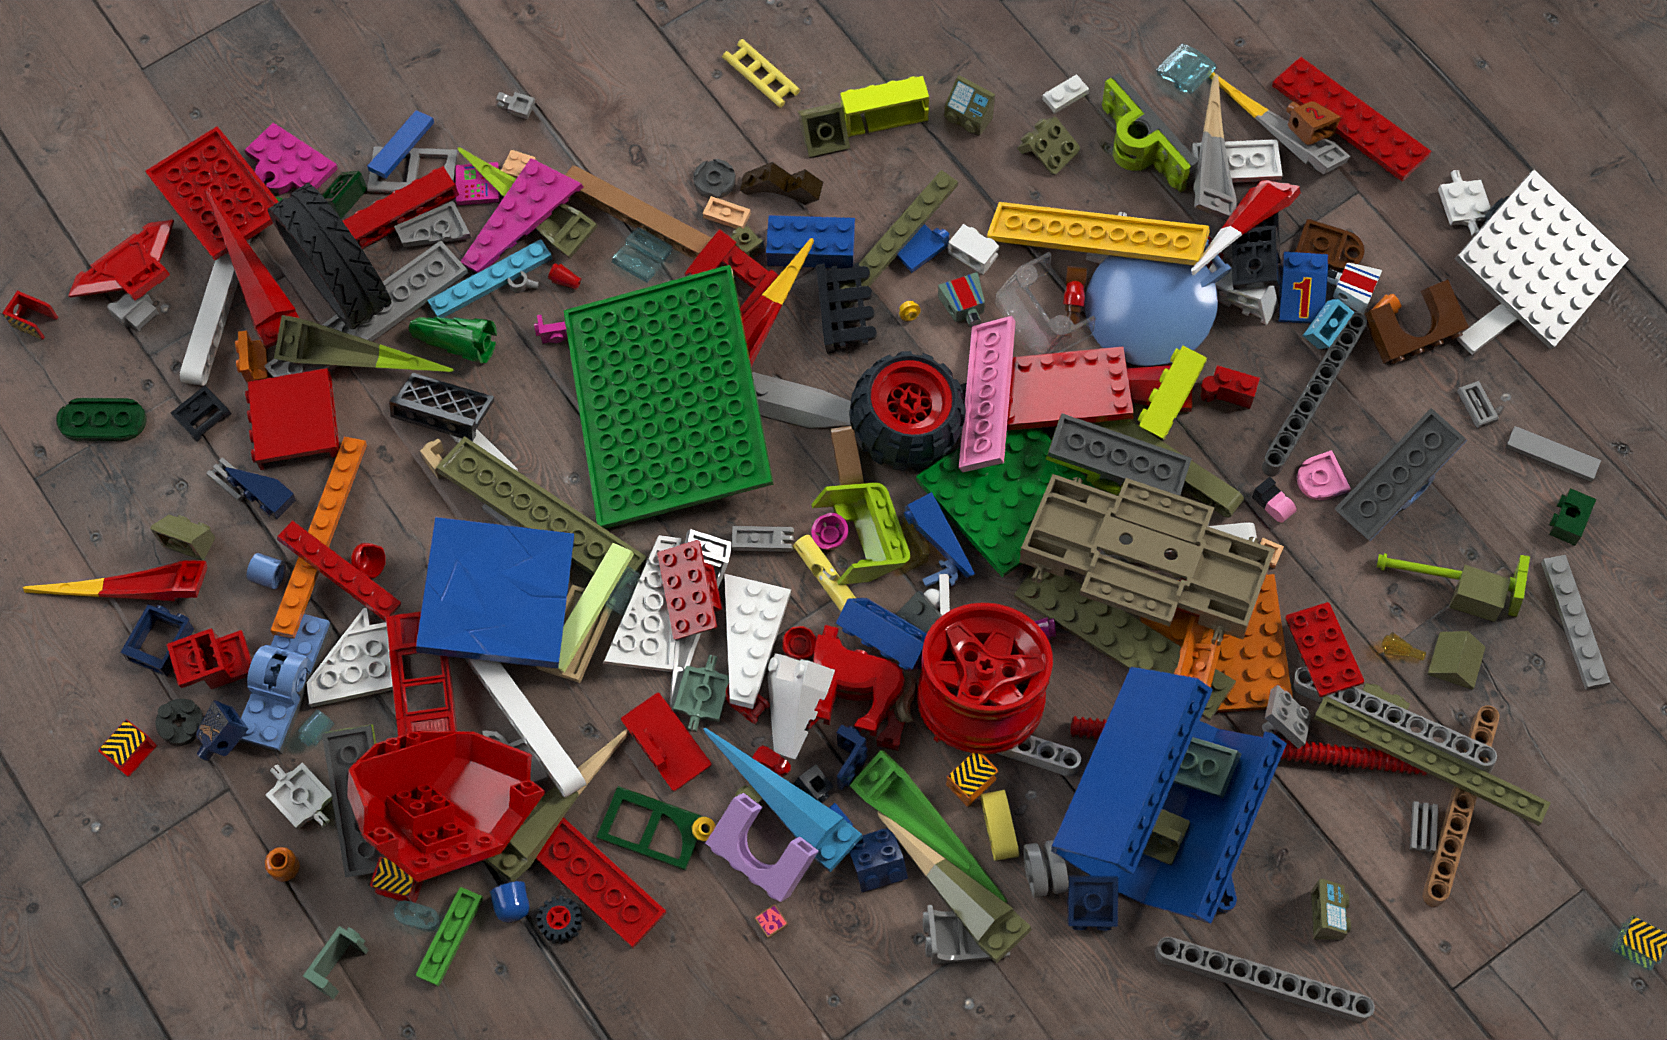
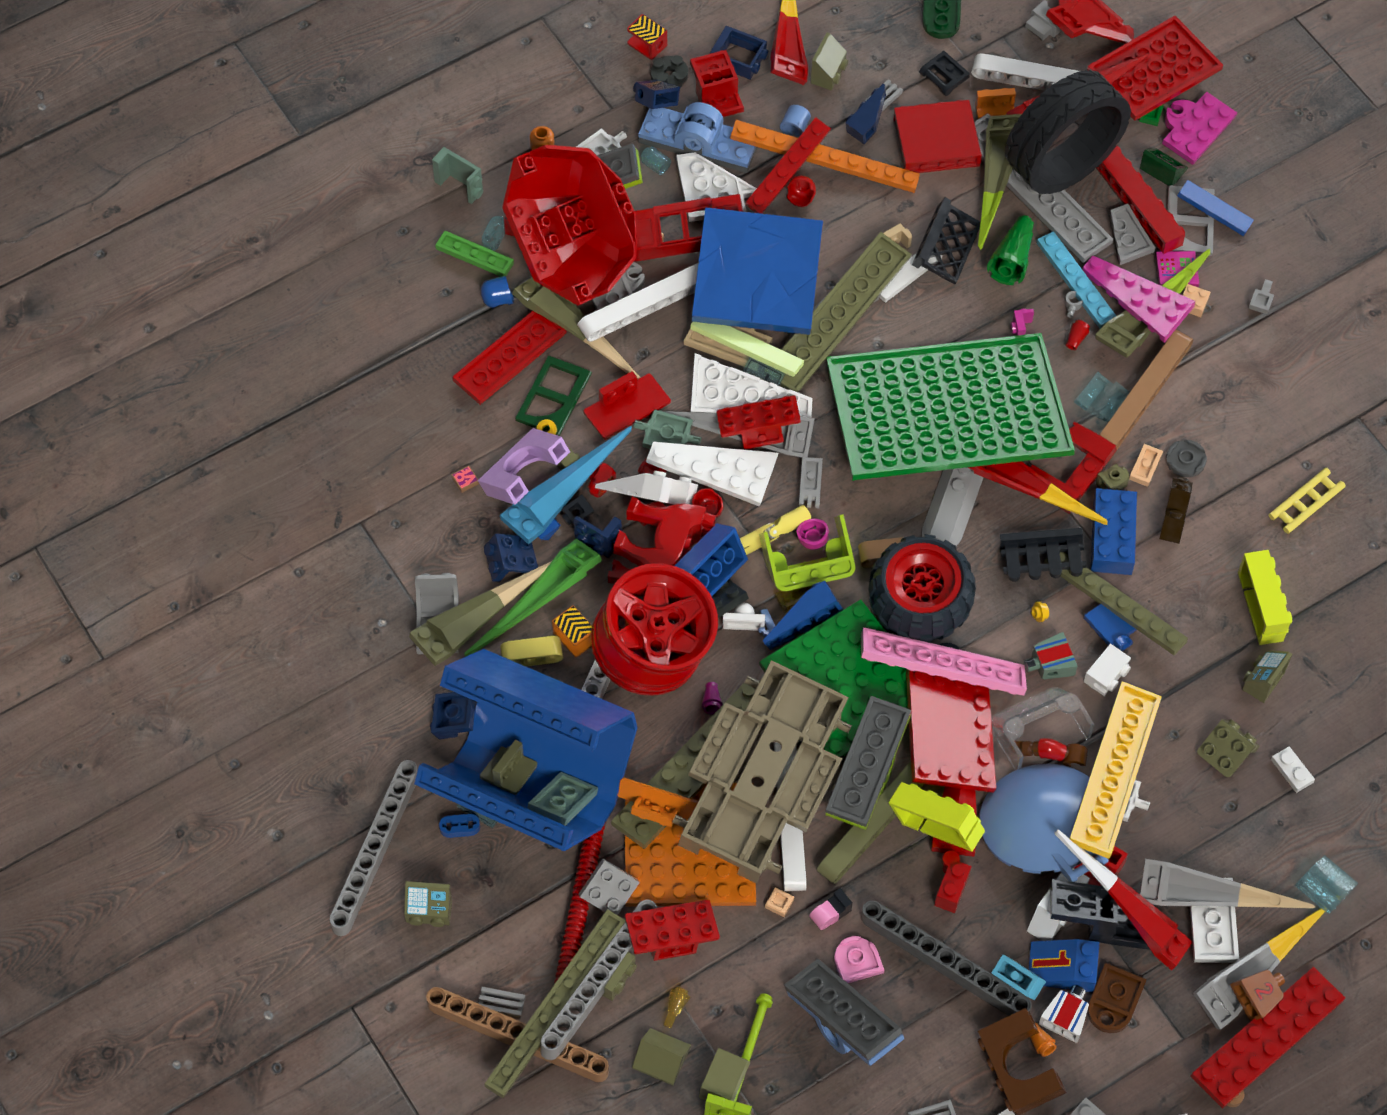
camera: 90 degrees right, 5 degrees down
(553, 913) = (482, 322): black wheel -> none
(824, 129) = (1236, 541): olive slope -> none
(1145, 136) = (1249, 824): lime piece -> none

